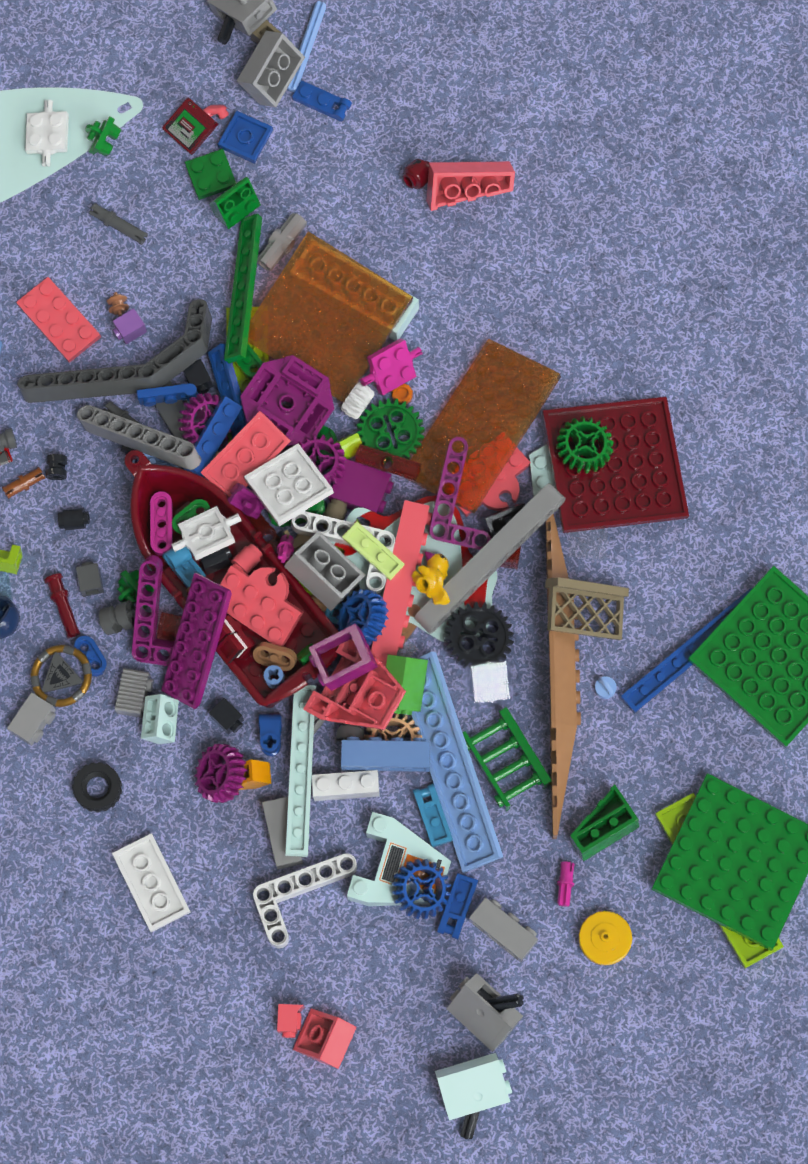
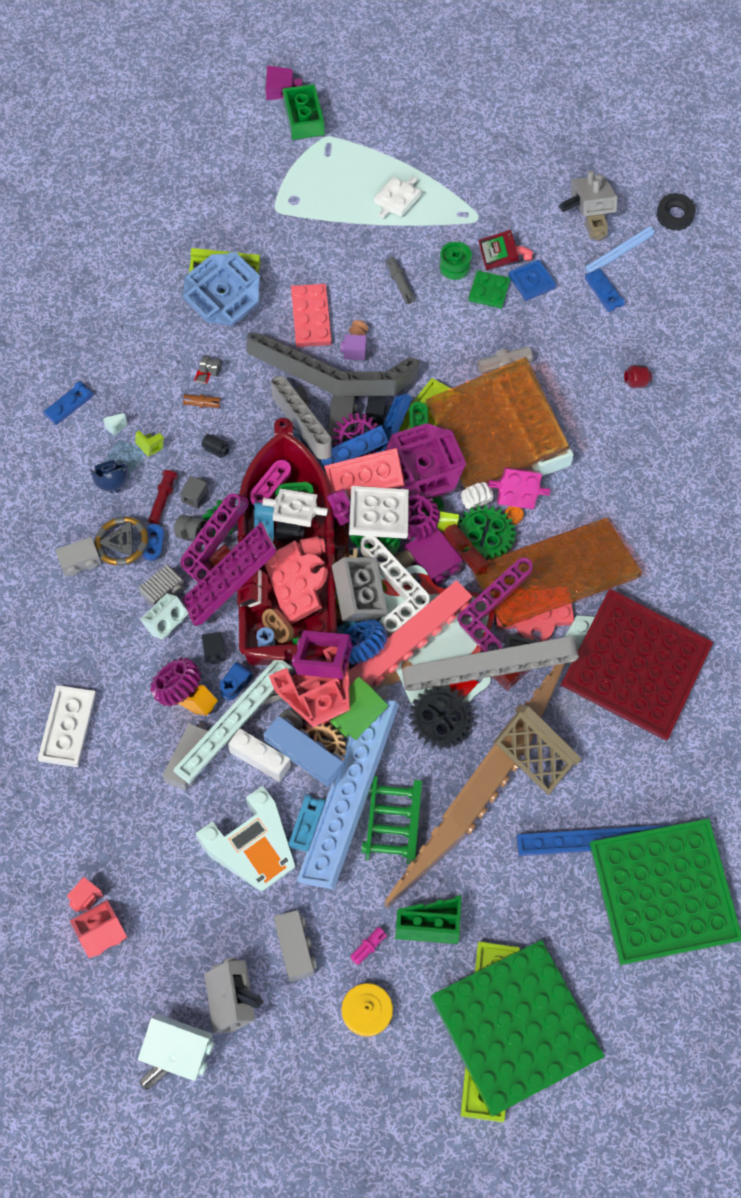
camera: 30 degrees right, 10 degrees down
(56, 467) = (231, 405): black wheel -> none
(85, 775) = (84, 619): black tyre -> none
(99, 144) = (441, 219): green hips -> none
(157, 166) = (455, 260): none -> green wheel
(166, 394) = (342, 402): blue plate -> none
(235, 203) = (491, 313): green slope -> none
(243, 289) = (451, 371): green plate -> none
(271, 68) = (582, 245): light grey brick -> none
(285, 548) = (343, 553): dark pink axle -> none
(295, 890) = (164, 804): white beam -> none
(373, 551) = (405, 599): yellowish green tile -> none
(415, 882) = (254, 859): blue gear -> none
(432, 578) = (434, 648): yellow animal -> none
(458, 905) = (273, 903): blue plate -> none
(467, 181) = (670, 401): coral wedge -> none
(490, 682) = (424, 755): clear piece -> none
(575, 430) = (627, 626): green gear -> none
(605, 687) = (510, 821): light blue tile -> none

